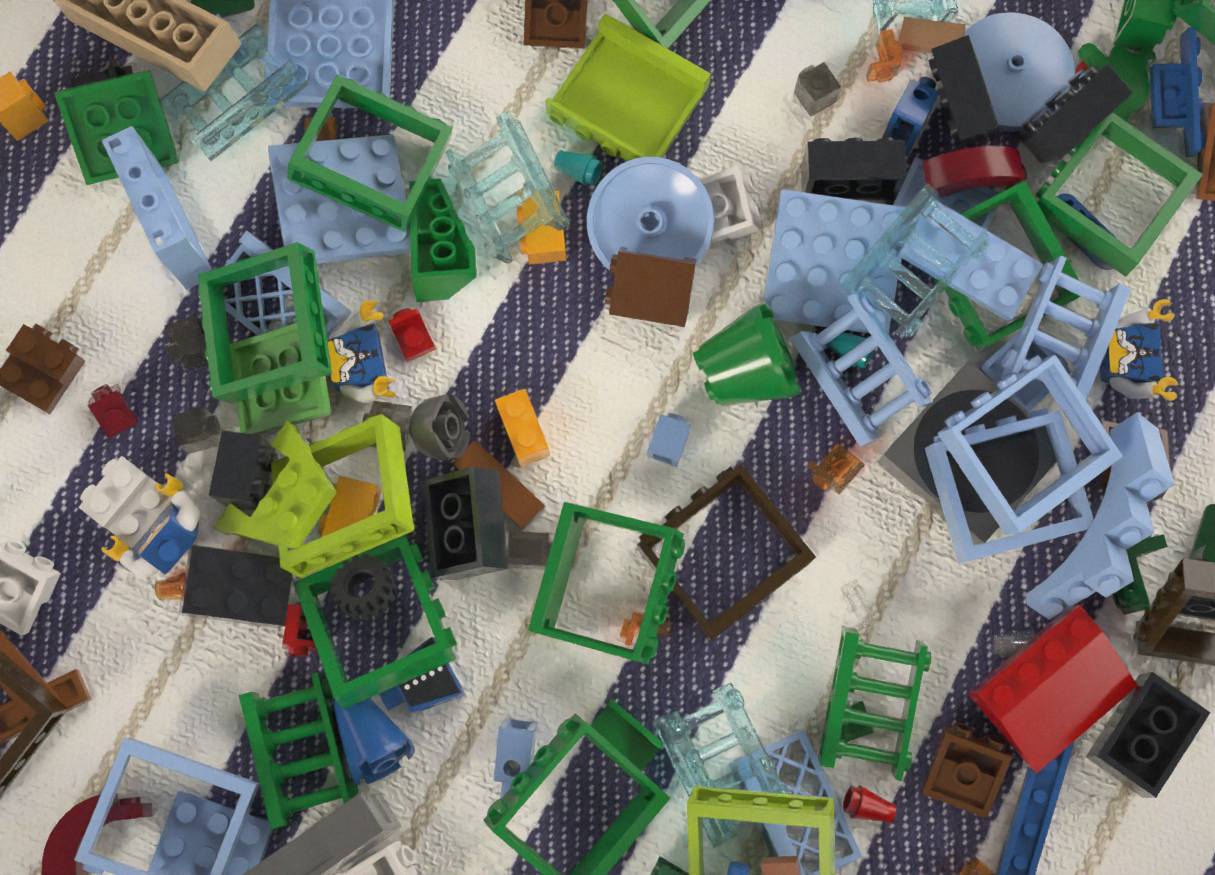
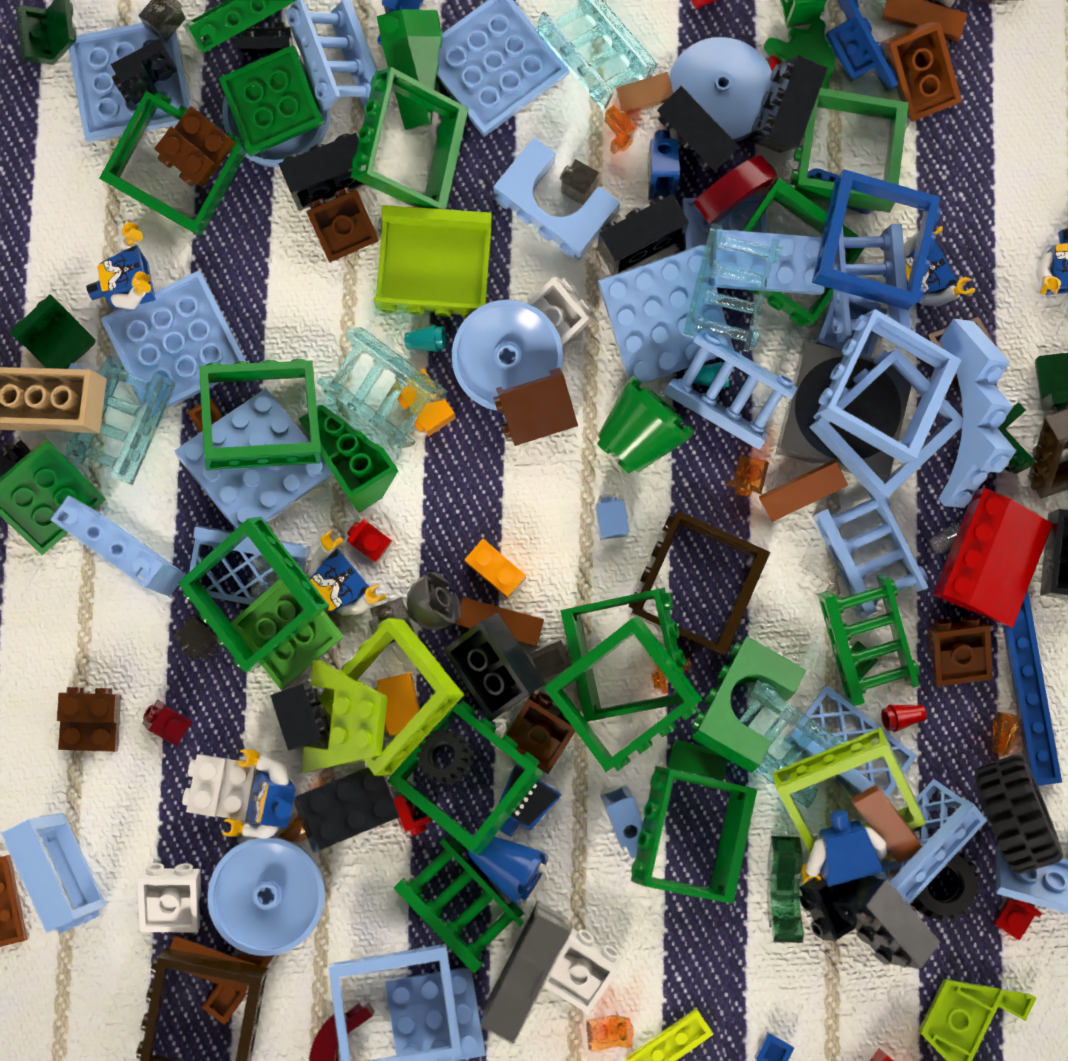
camera: 30 degrees left, 5 degrees up
(108, 635) = (266, 896): none -> light blue dish
(196, 430) = (244, 703): clear smoke brick -> none
(481, 617) = (541, 730): none -> reddish brown plate
(603, 674) = (691, 698): none -> green window
(664, 710) = (719, 726): none -> arch
(782, 134) = (571, 232): none -> light blue arch
(885, 512) = (803, 490): none -> dark orange tile
(895, 596) = (842, 549): none -> light blue fence
(1060, 333) = (876, 291): none -> blue window

